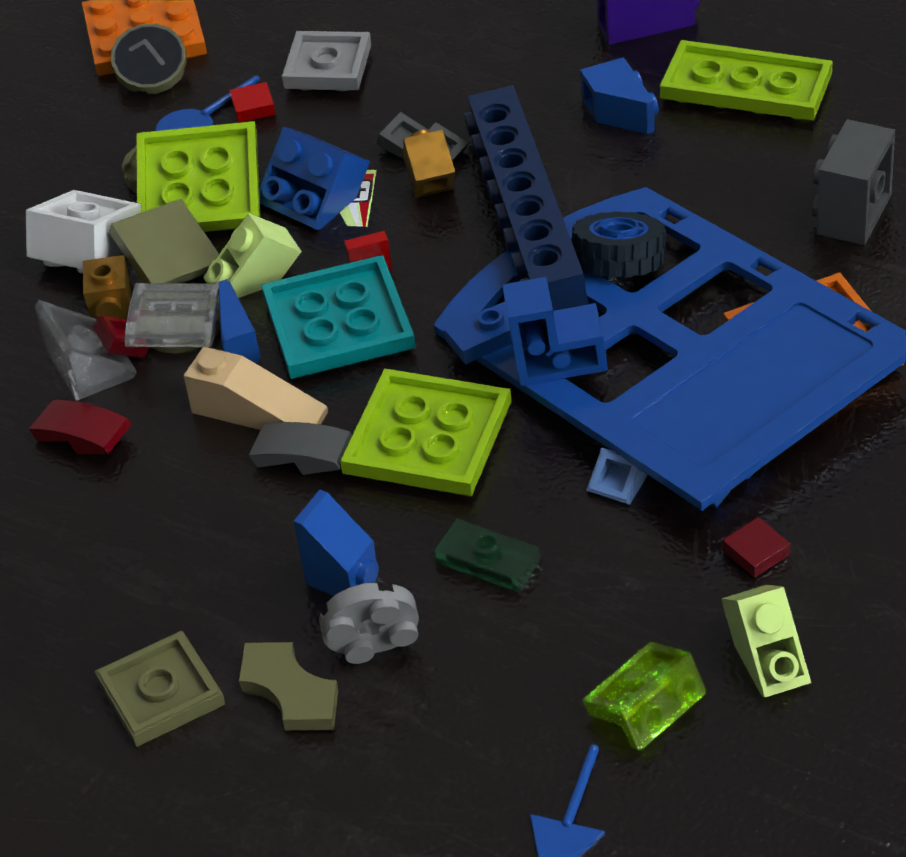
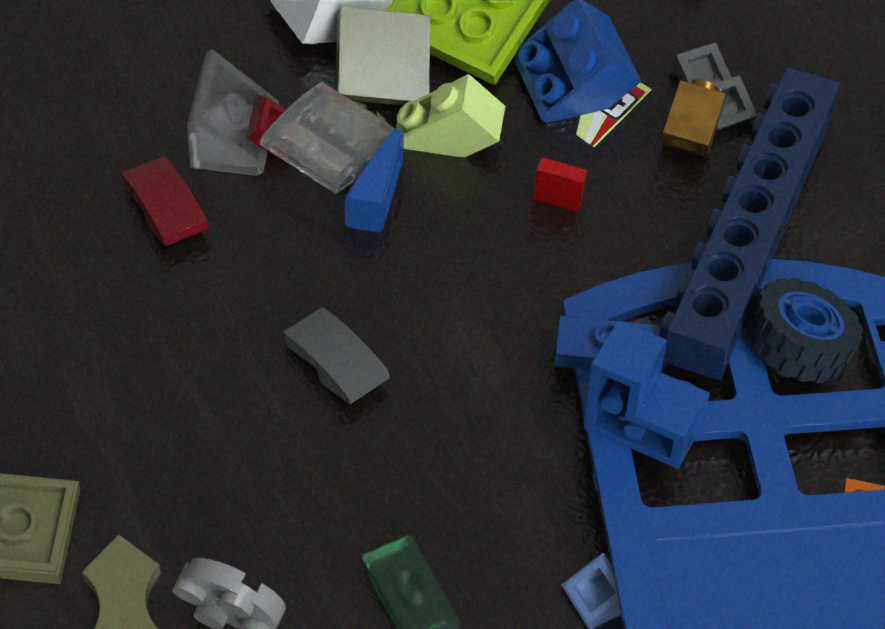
camera: 25 degrees right, 10 degrees up
(107, 287) = (299, 66): pearl gold brick -> none
(244, 393) = (332, 267): tan slope -> none
(333, 547) = (264, 495): blue slope -> none
(337, 316) = (480, 233): teal plate -> none
(426, 432) = (460, 418): lime plate -> none

